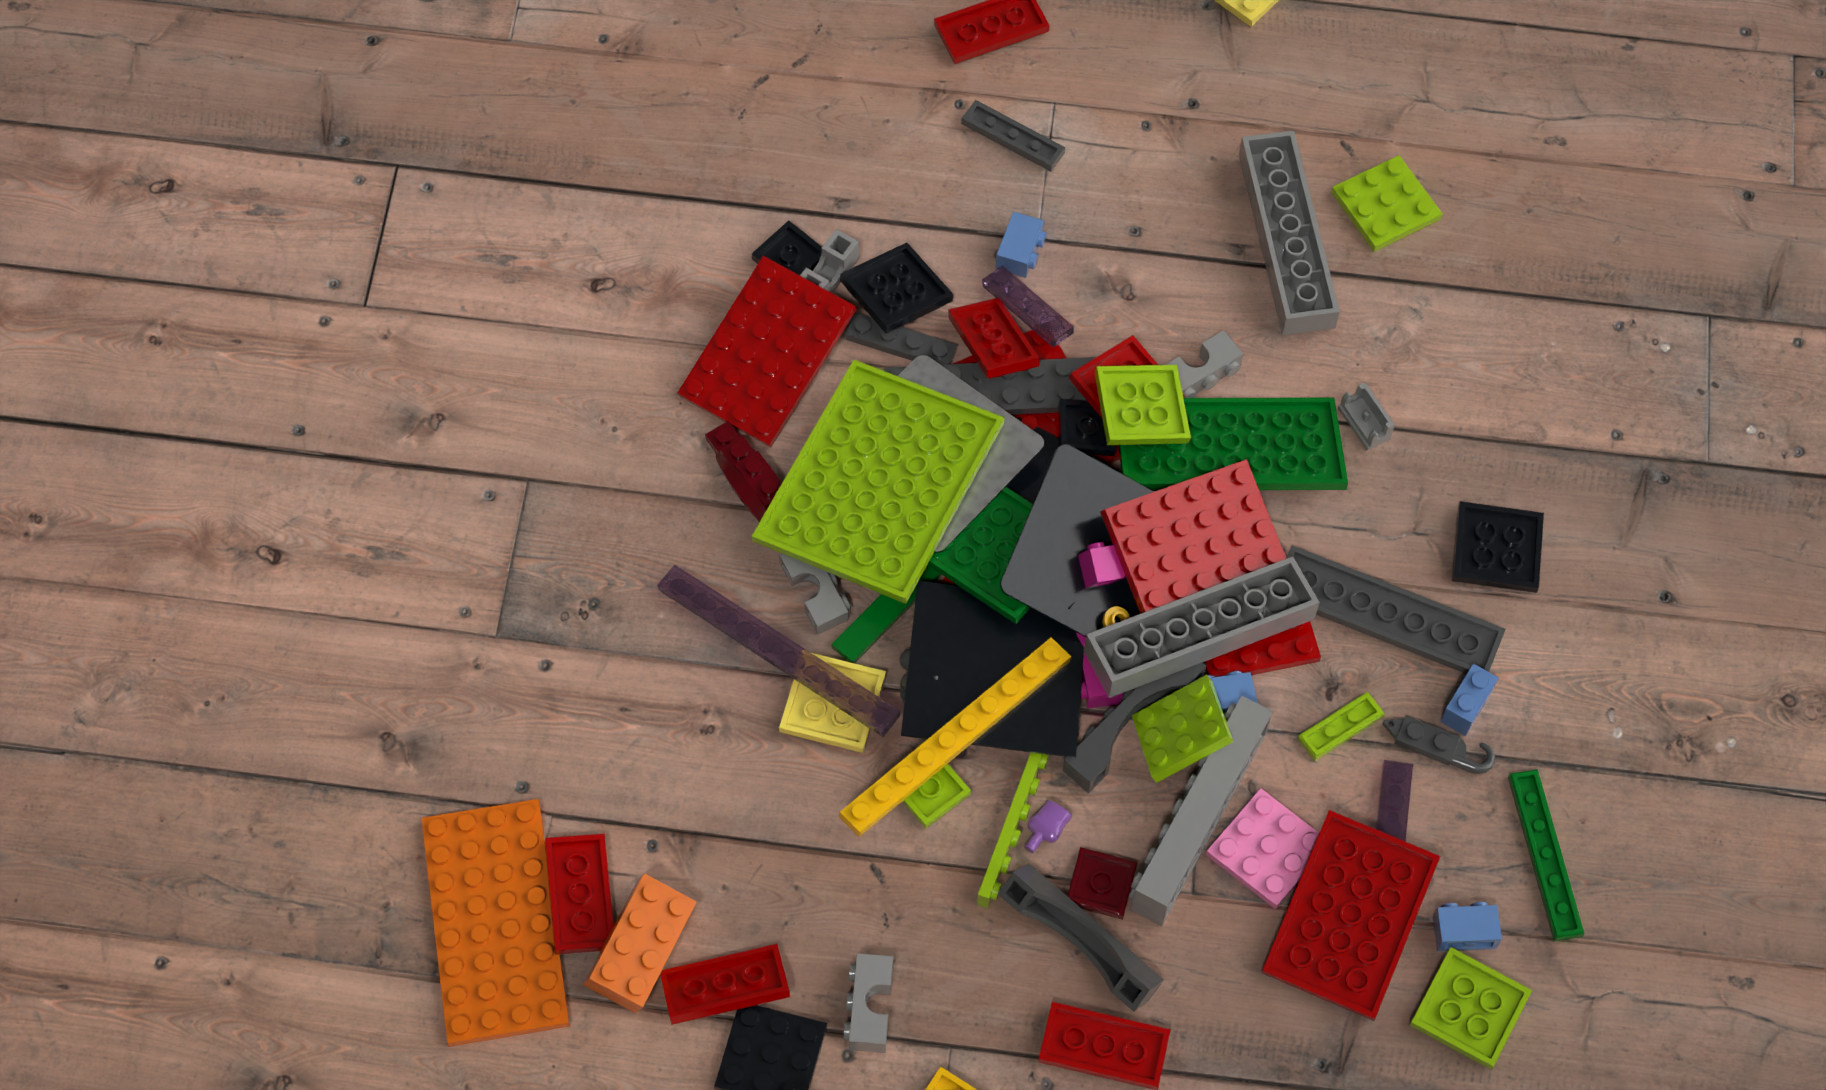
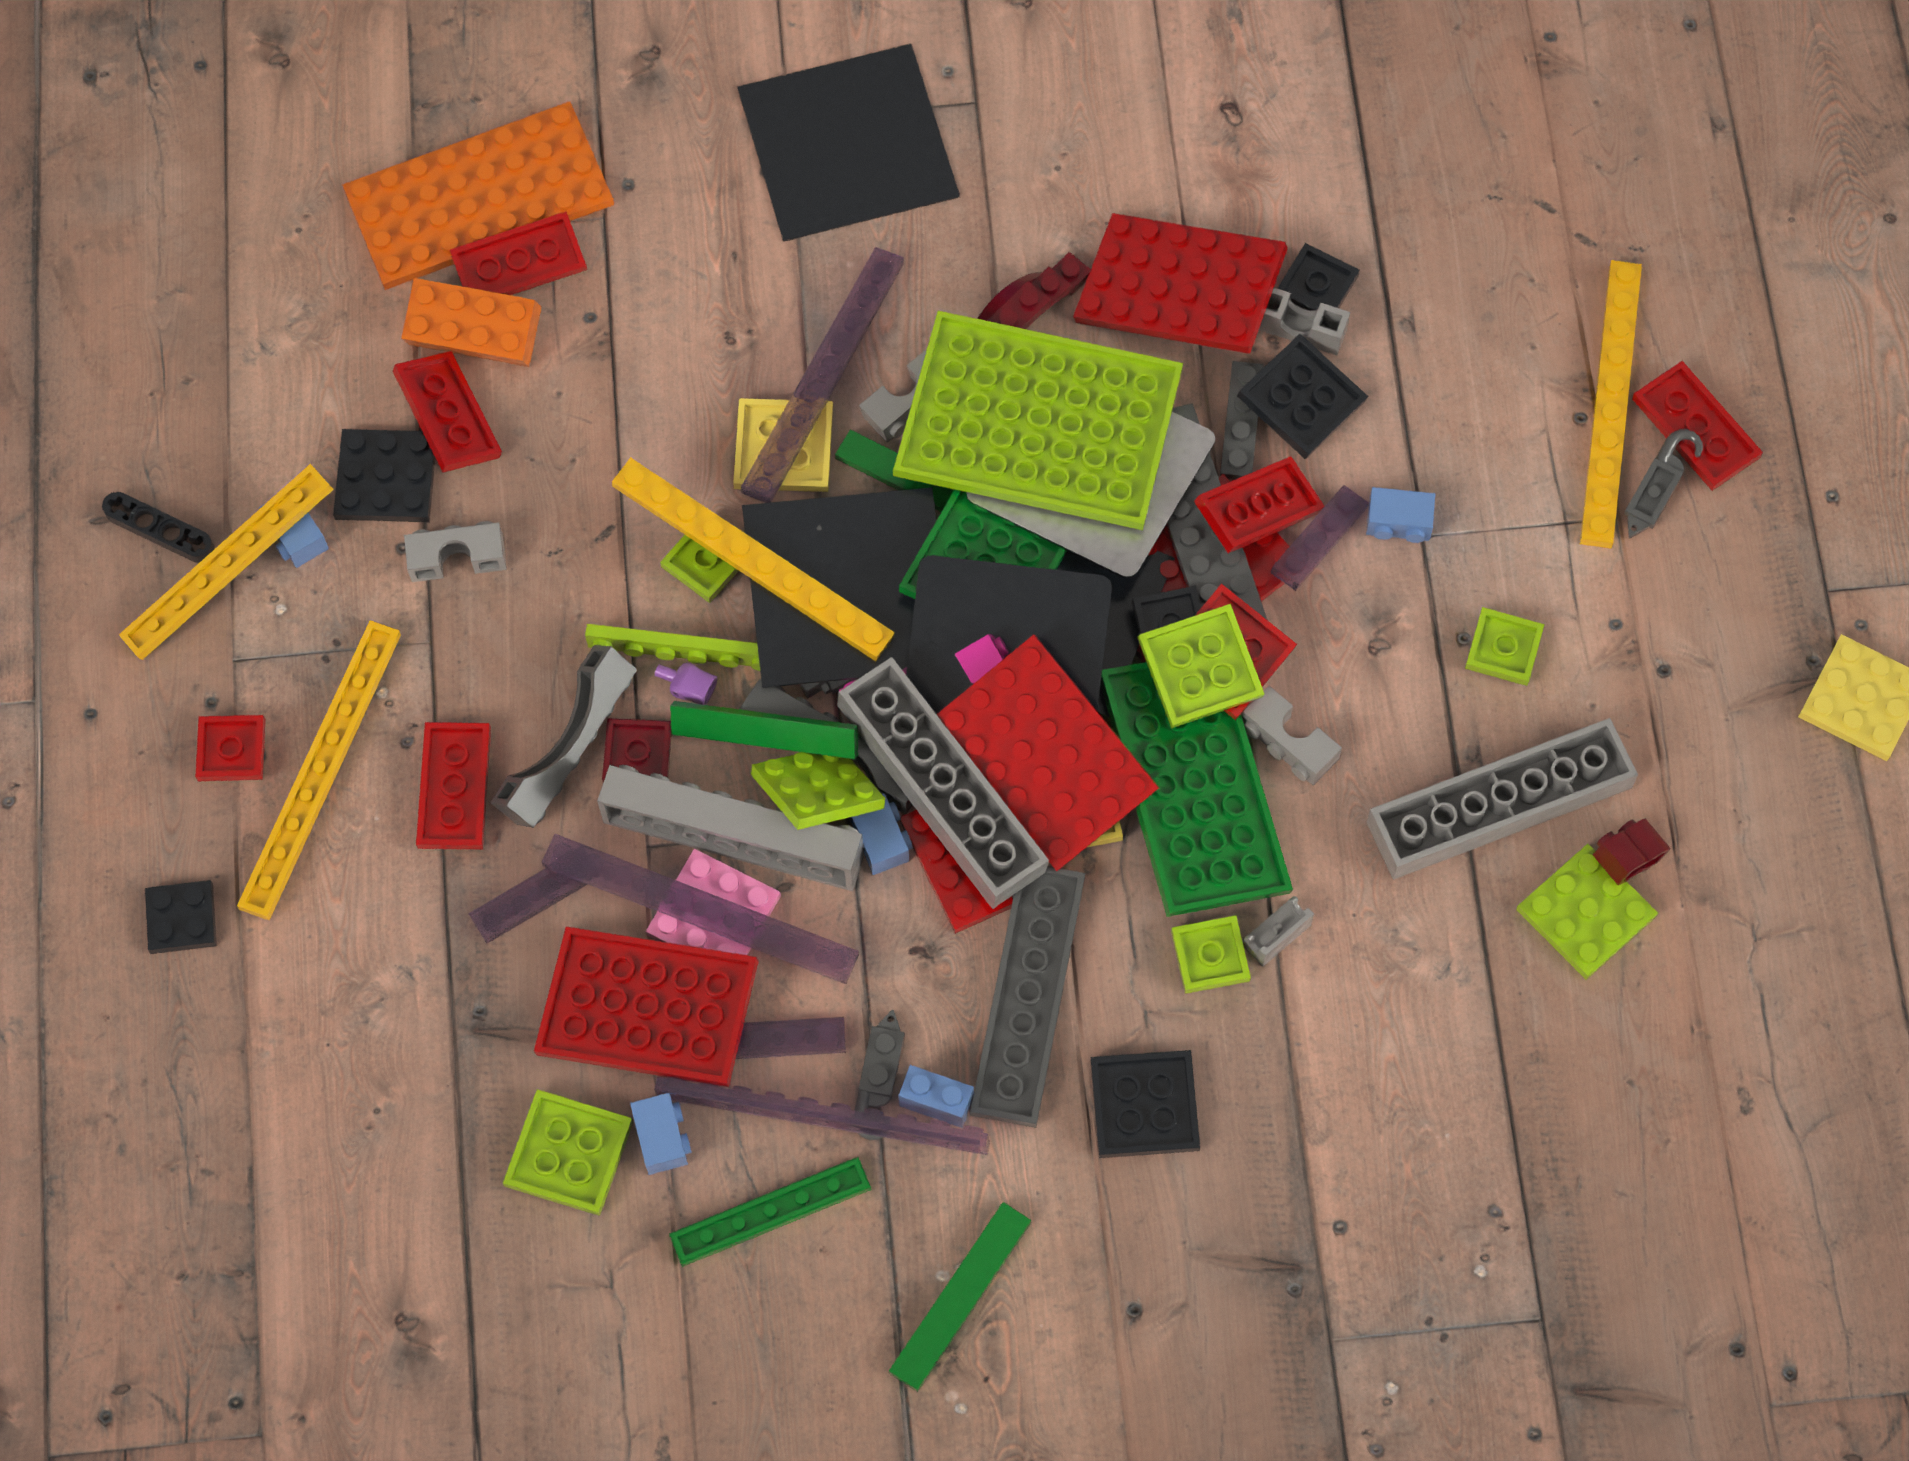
camera: 80 degrees right, 5 degrees up
(535, 592) = (847, 142): none -> black piece
(954, 79) = (1610, 404): none -> yellow plate
(1013, 135) = (1549, 479): dark grey plate -> none
(1038, 62) = (1659, 483): none -> dark grey plate
(1109, 615) = (941, 692): yellow plate -> none
(1115, 764) = (764, 729): none -> green tile
(1152, 201) = (1504, 646): none -> lime plate
(1225, 994) = (522, 903): none -> plate
(1267, 855) = (700, 908): none -> clear purple plate
(1341, 726) = (881, 969): lime tile -> none
(1348, 156) = (1630, 850): none -> dark red brick
(1377, 470) = (1210, 954): none -> lime plate
(1468, 800) = (836, 1116): none -> clear purple plate
(1640, 721) = (960, 1297): none -> green tile

